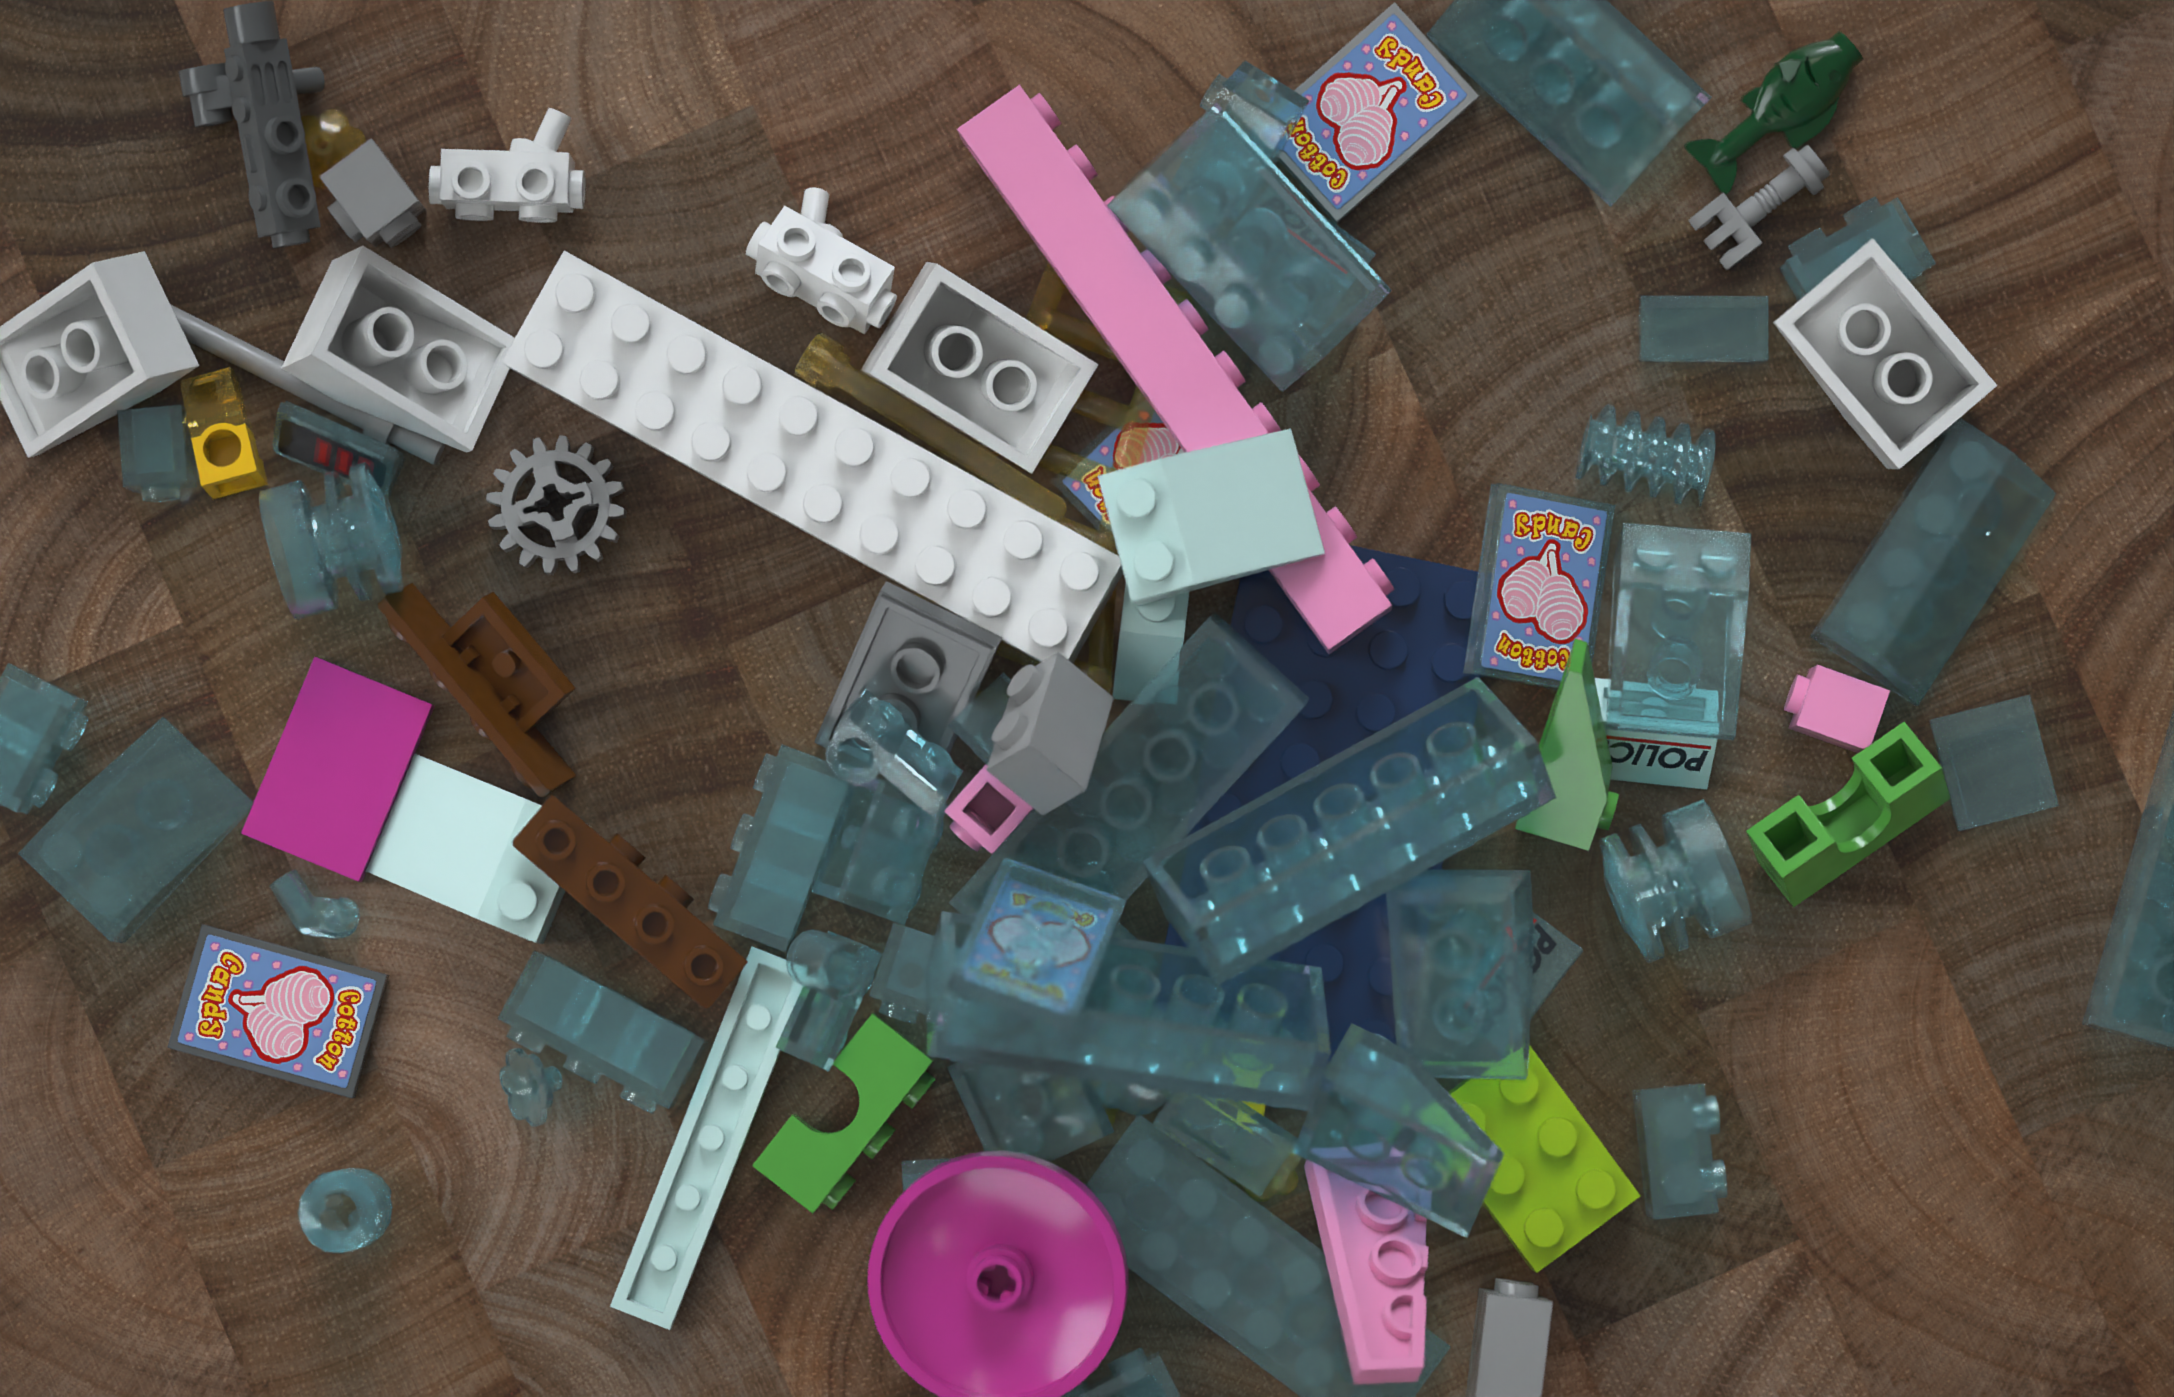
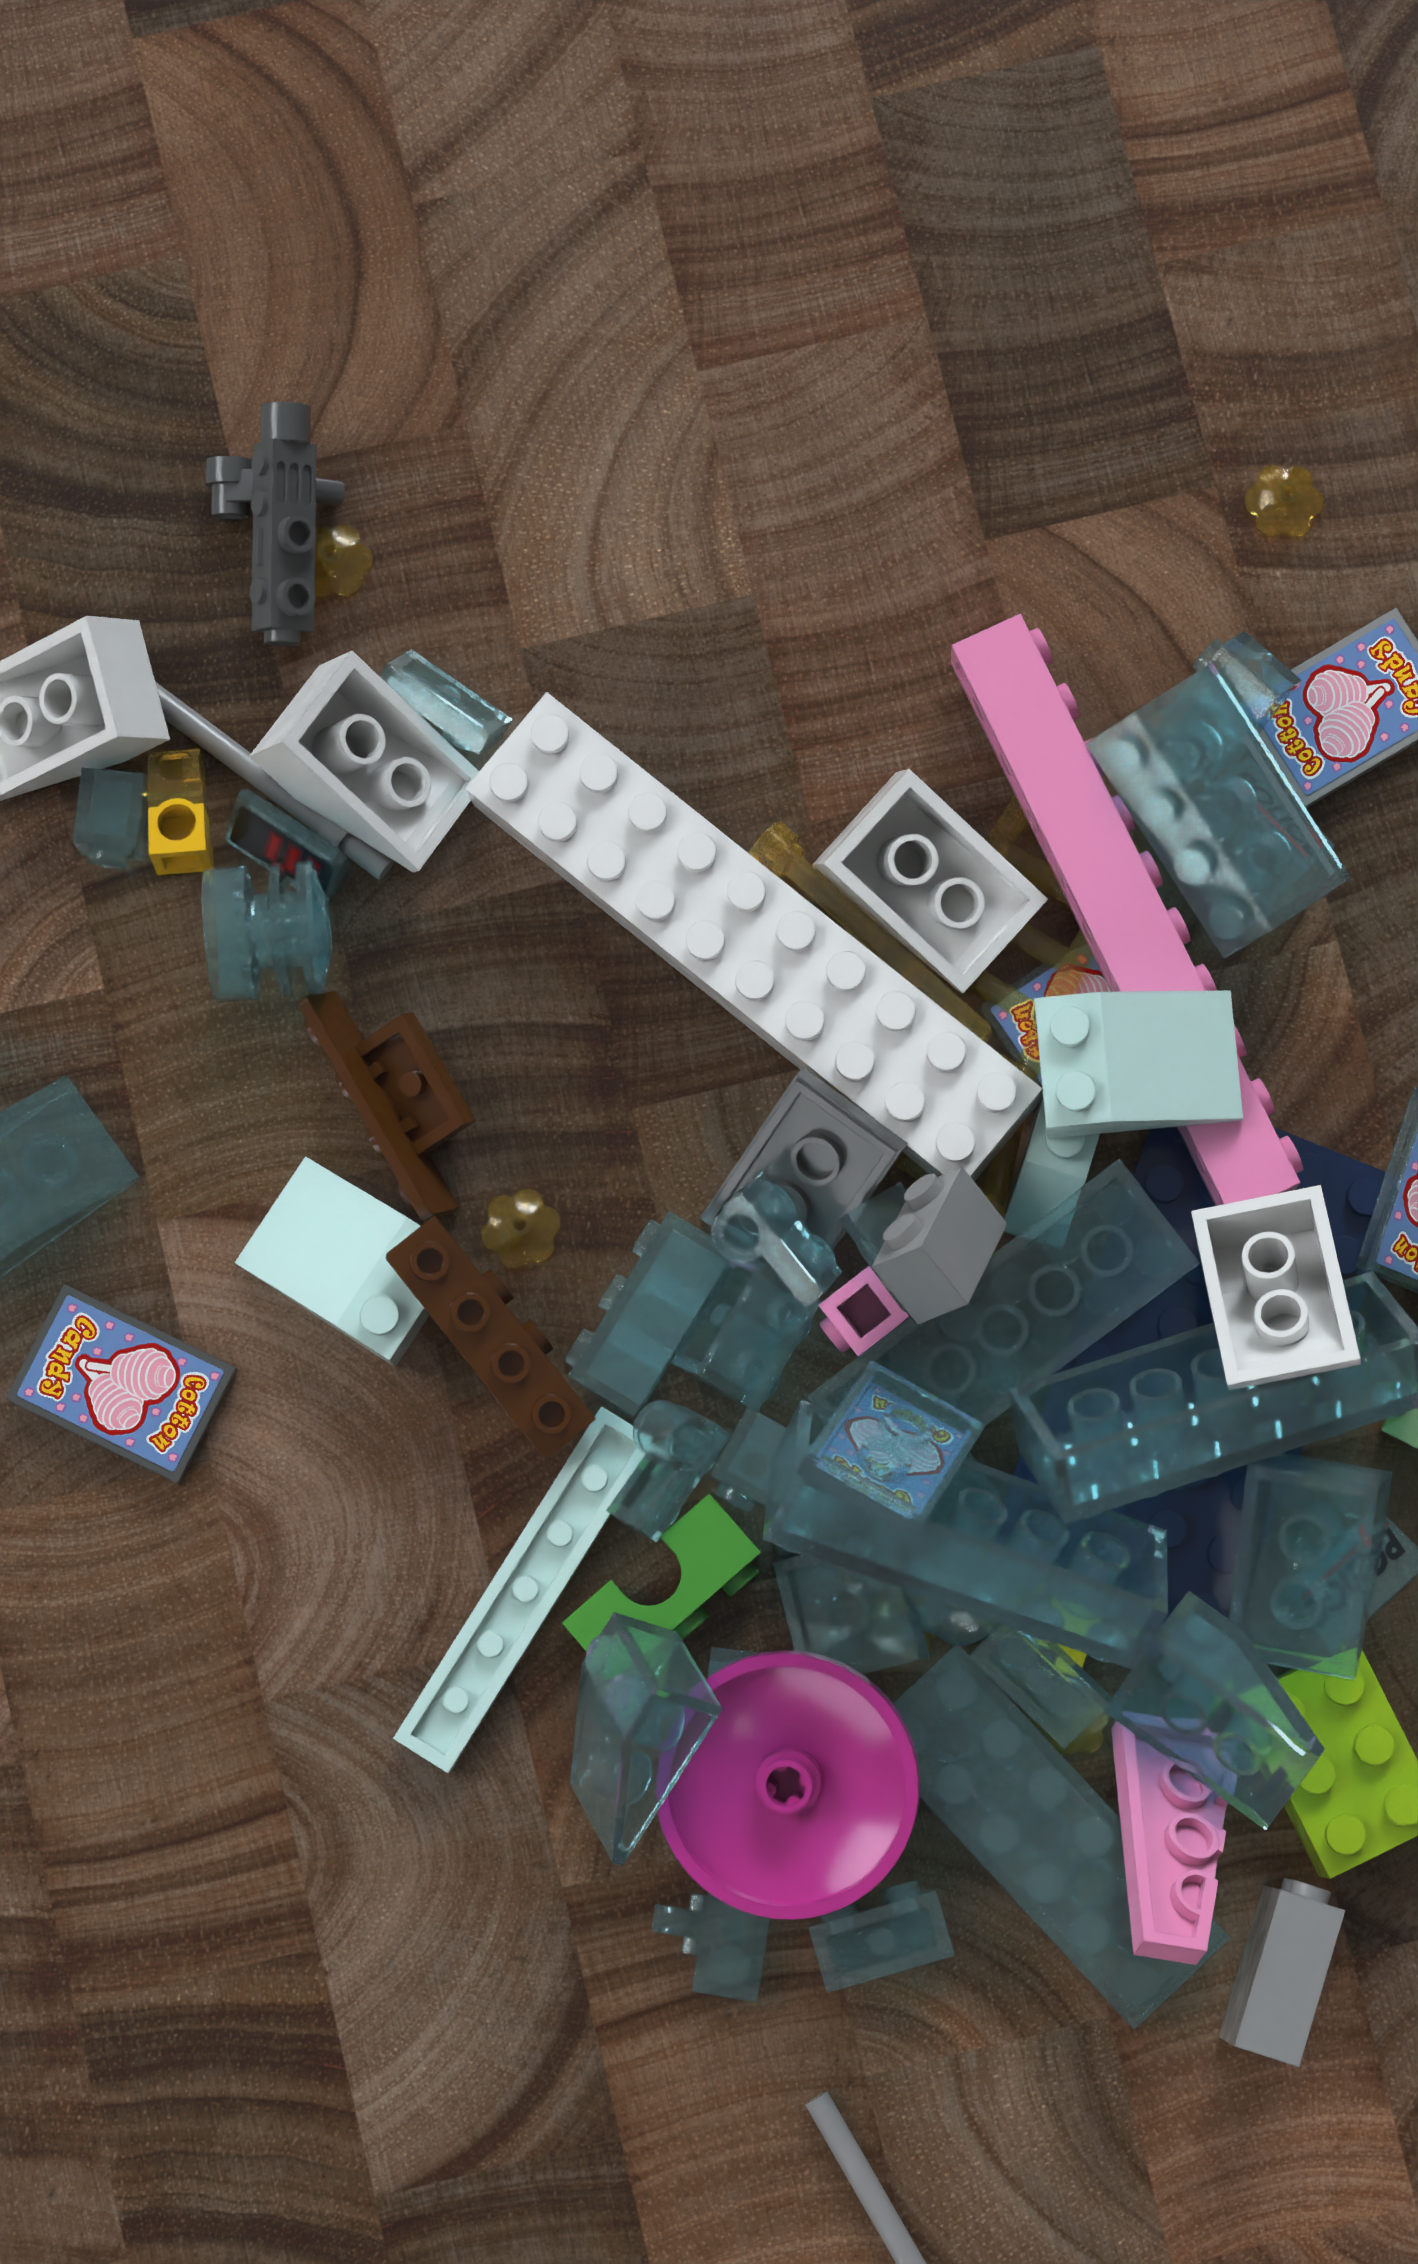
camera: 10 degrees right, 5 degrees down
(315, 915) = (177, 1296): clear light blue arm -> none
(323, 1198) = (129, 1576): clear light blue piece -> none
(337, 769) = (227, 1157): dark pink tile -> none
(372, 197) = (370, 608): light grey brick -> none
(466, 274) = (460, 713): none -> clear light blue plate
(525, 179) = (519, 620): white brick -> none
(529, 1086) = (354, 1503): clear light blue plant -> none
(549, 478) = (517, 936): light grey gear -> none
(601, 1032) = (436, 1464): clear light blue brick -> none
(655, 795) = (519, 1246): none -> clear yellow plant
(819, 266) = (793, 758): white brick -> none
(841, 1253) = (635, 1727): none -> clear light blue slope
(1382, 716) = (1275, 1288): none -> white slope

